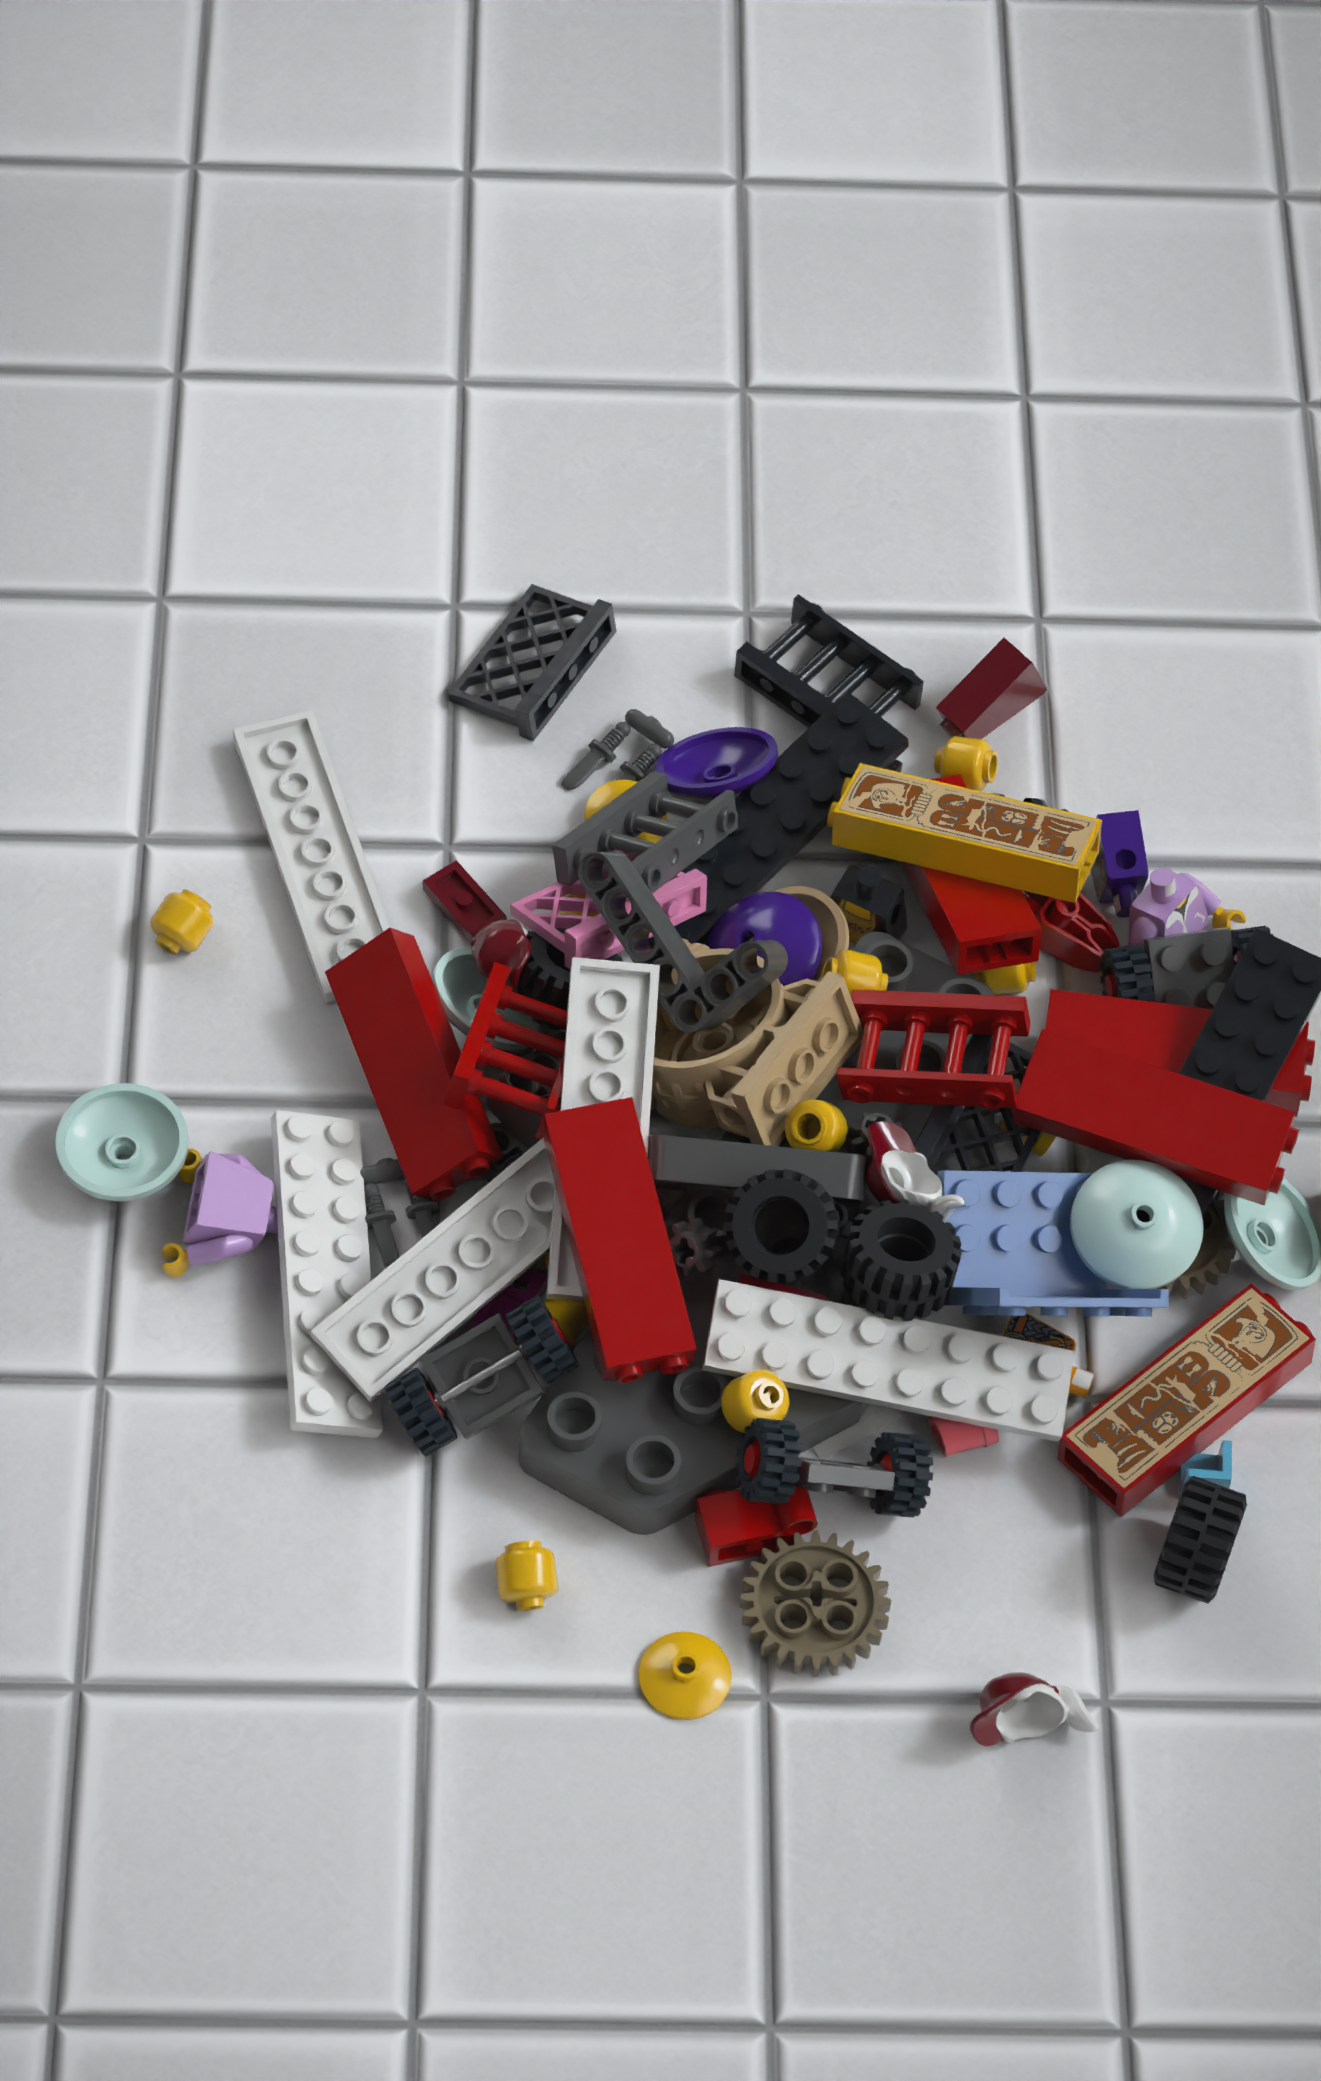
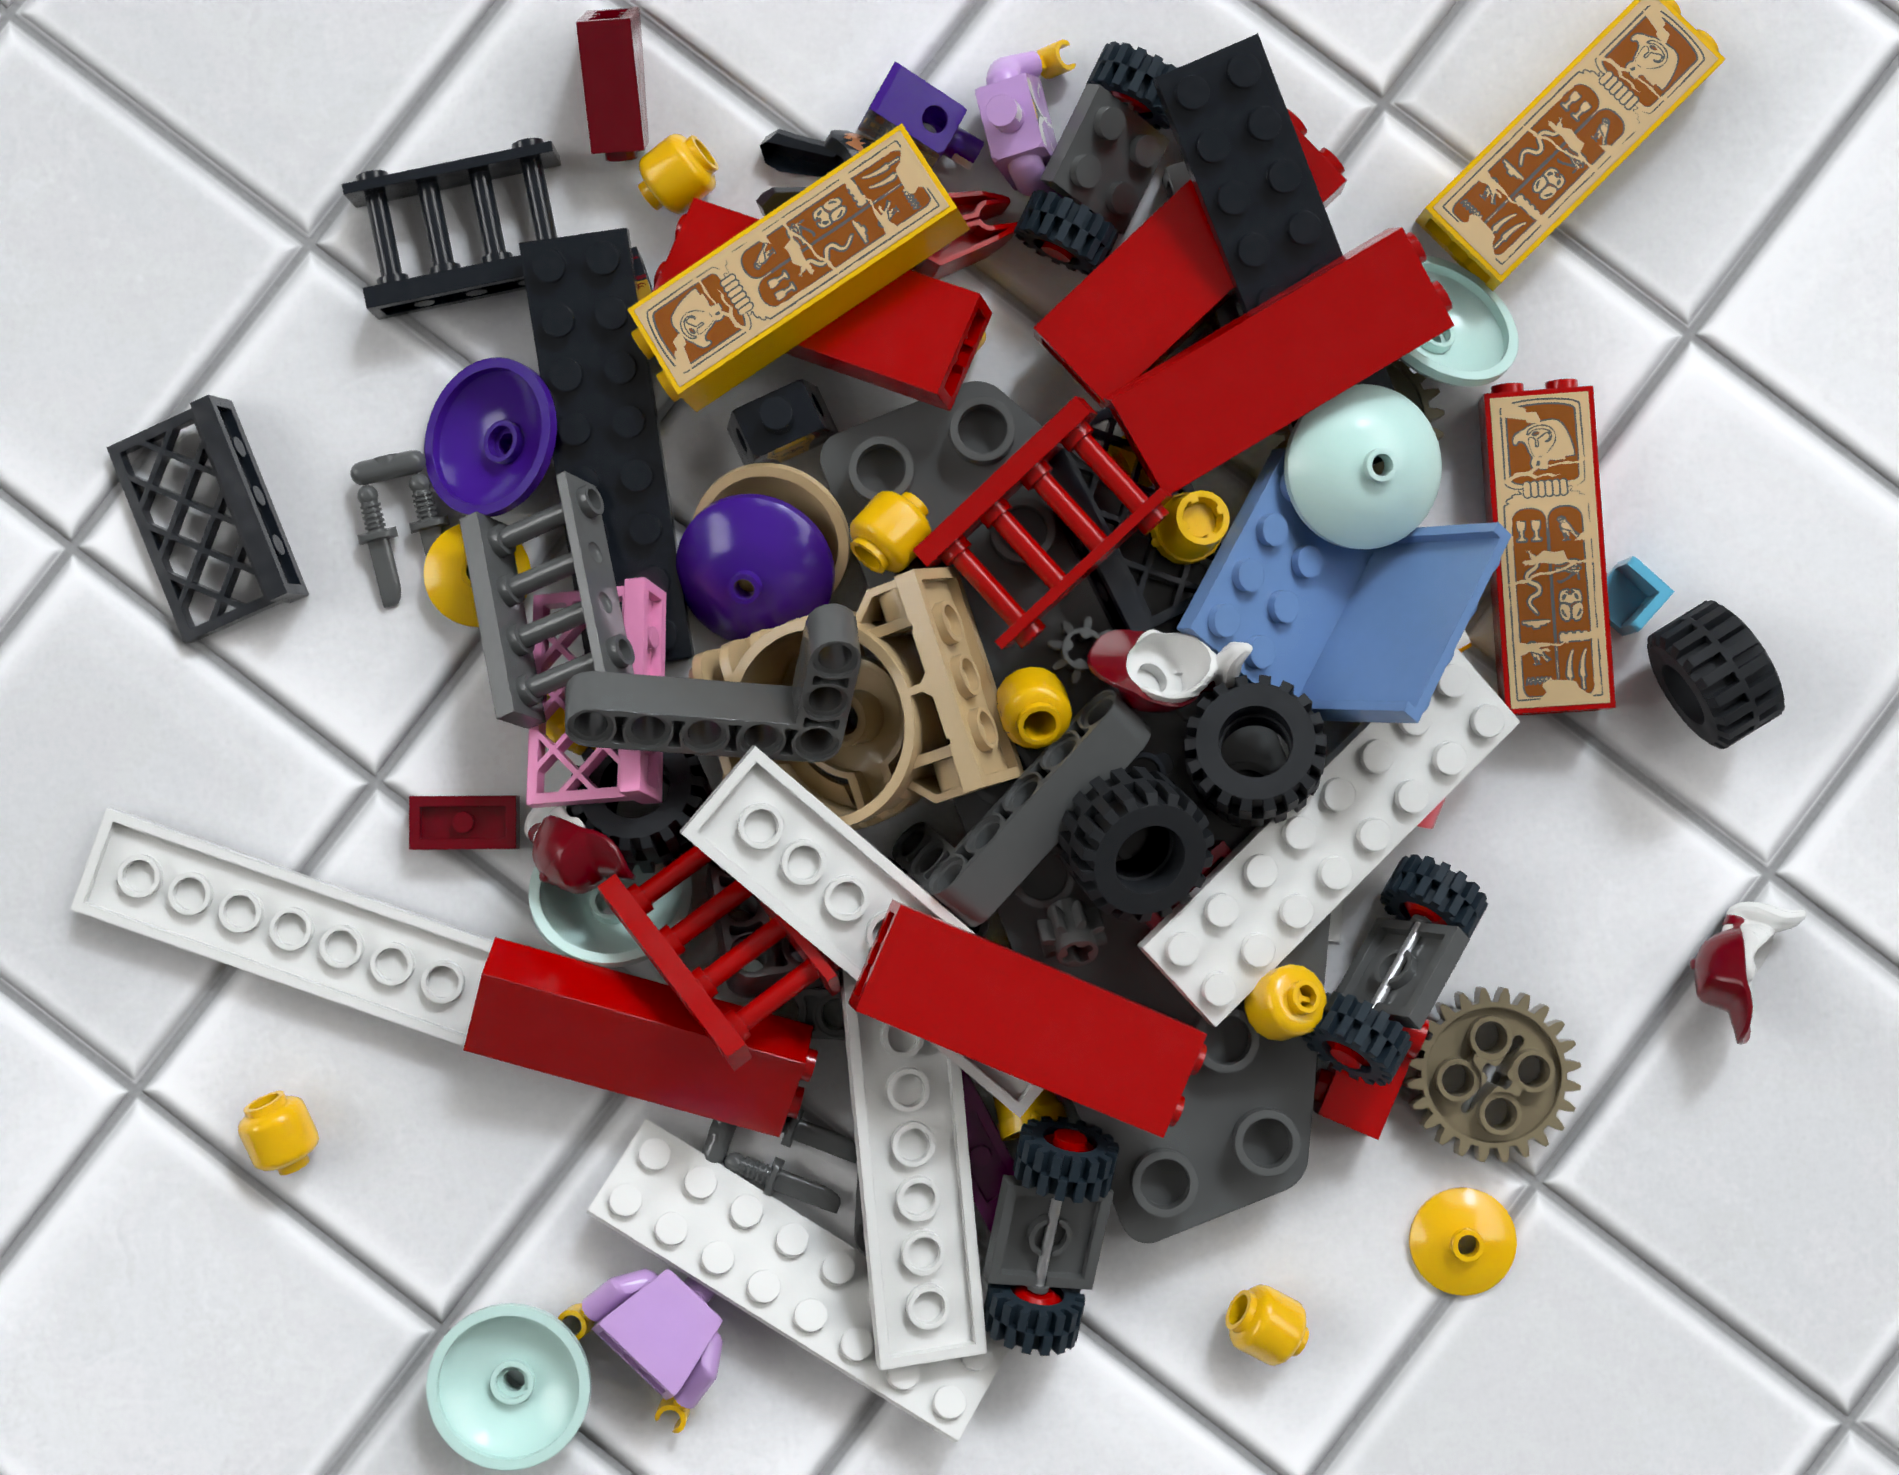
camera: 50 degrees left, 30 degrees up
(1009, 1144) = (1192, 527): none -> yellow piece

